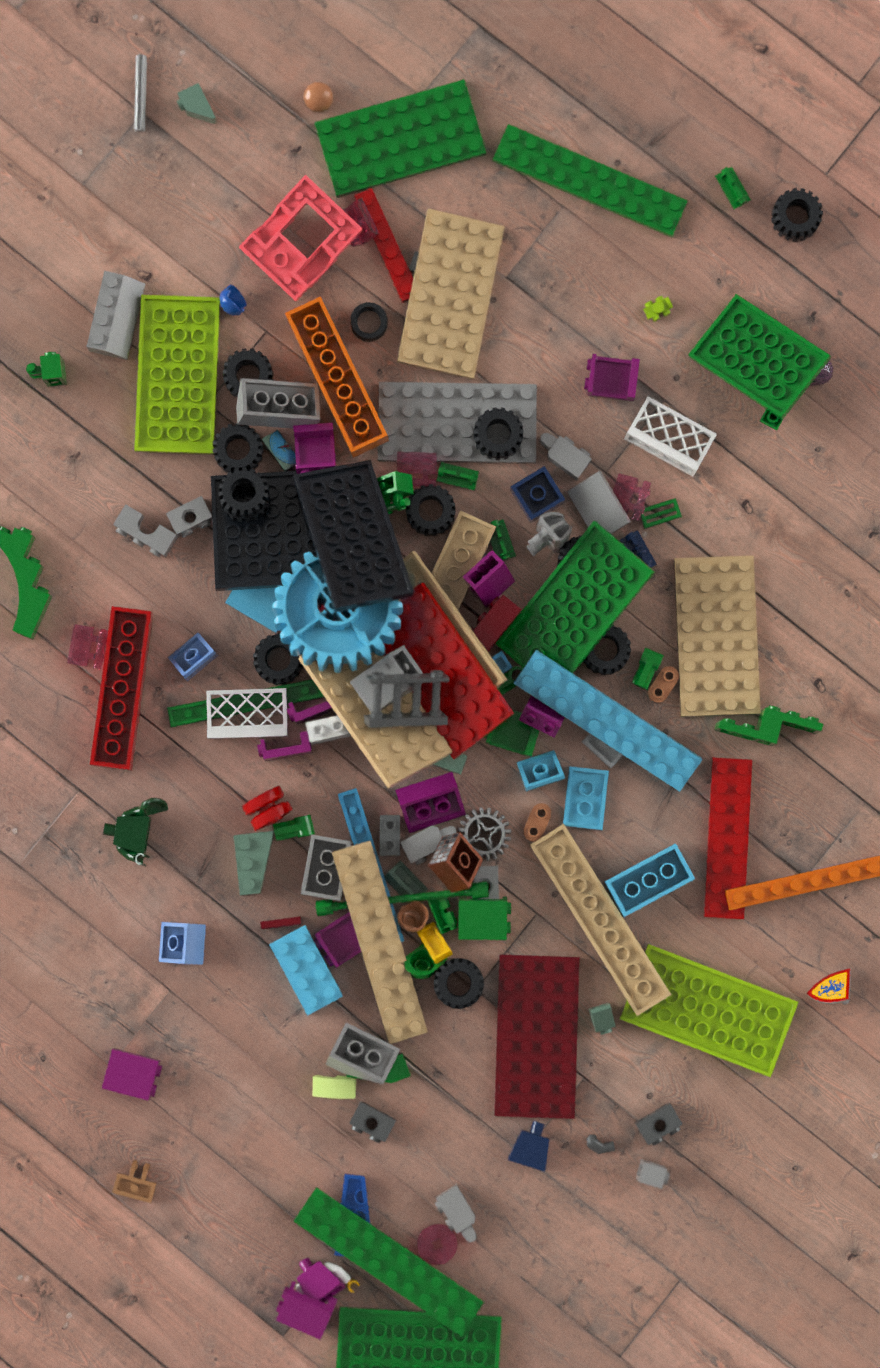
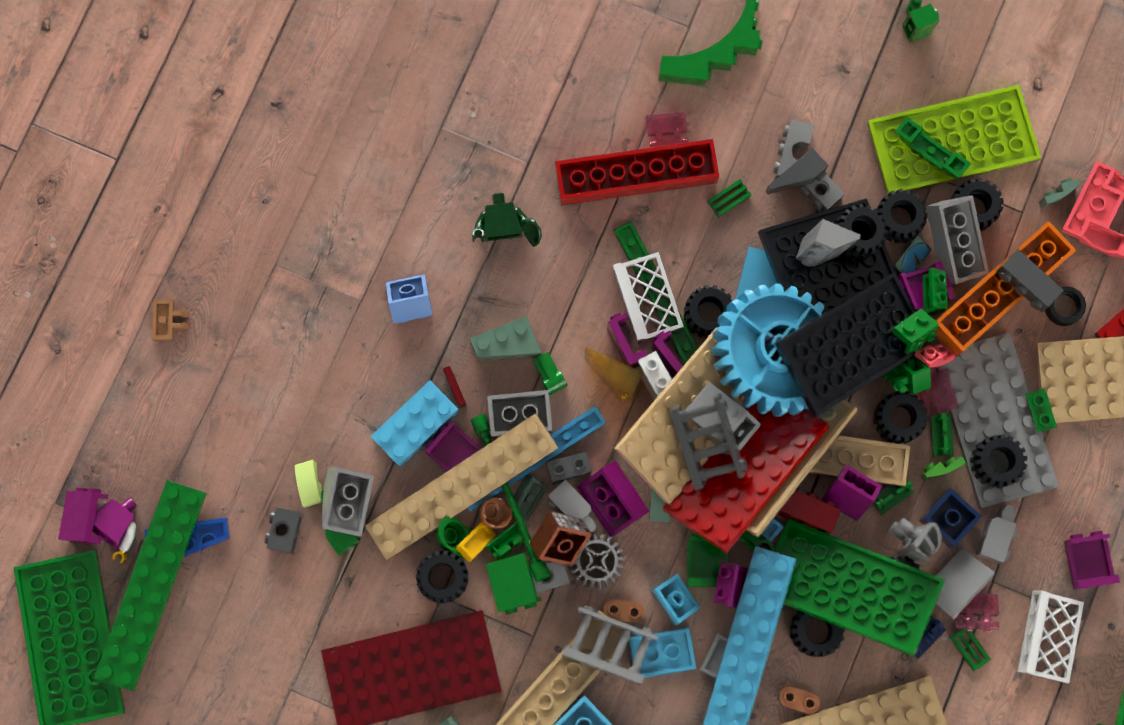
camera: 75 degrees right, 5 degrees down
(115, 315) = (990, 66): light grey slope -> none
(132, 1074) = (270, 286): magenta brick -> none
(166, 590) = (743, 188): none -> green tile
(170, 530) = (801, 173): none -> dark grey slope
(182, 400) = (930, 150): none -> green slope
(192, 656) = (686, 231): medium blue slope -> none
(232, 301) = (1042, 170): blue hair -> none
(248, 533) = (825, 243): none -> light grey slope
(257, 286) = (1061, 192): none -> sand green slope
(267, 807) = (561, 341): red wheel -> none
(316, 765) = (617, 376): none -> clear yellow slope
(322, 441) = (935, 291): none -> green bracket
(339, 352) = (1029, 281): none -> dark grey brick
(355, 472) = (916, 330): none -> green bracket
(383, 460) = (936, 355): none -> coral slope
(432, 1233) = (187, 638): clear pink plate -> none
(458, 1212) = (216, 640): light grey hinge -> none
(461, 378) = (1041, 410): none -> green hinge
(488, 494) = (936, 470): none -> bright green slope
(531, 1148) = (298, 696): dark blue torso -> none
(575, 863) = (594, 659): none -> light grey fence
(648, 665) = (815, 679): green piece -> none

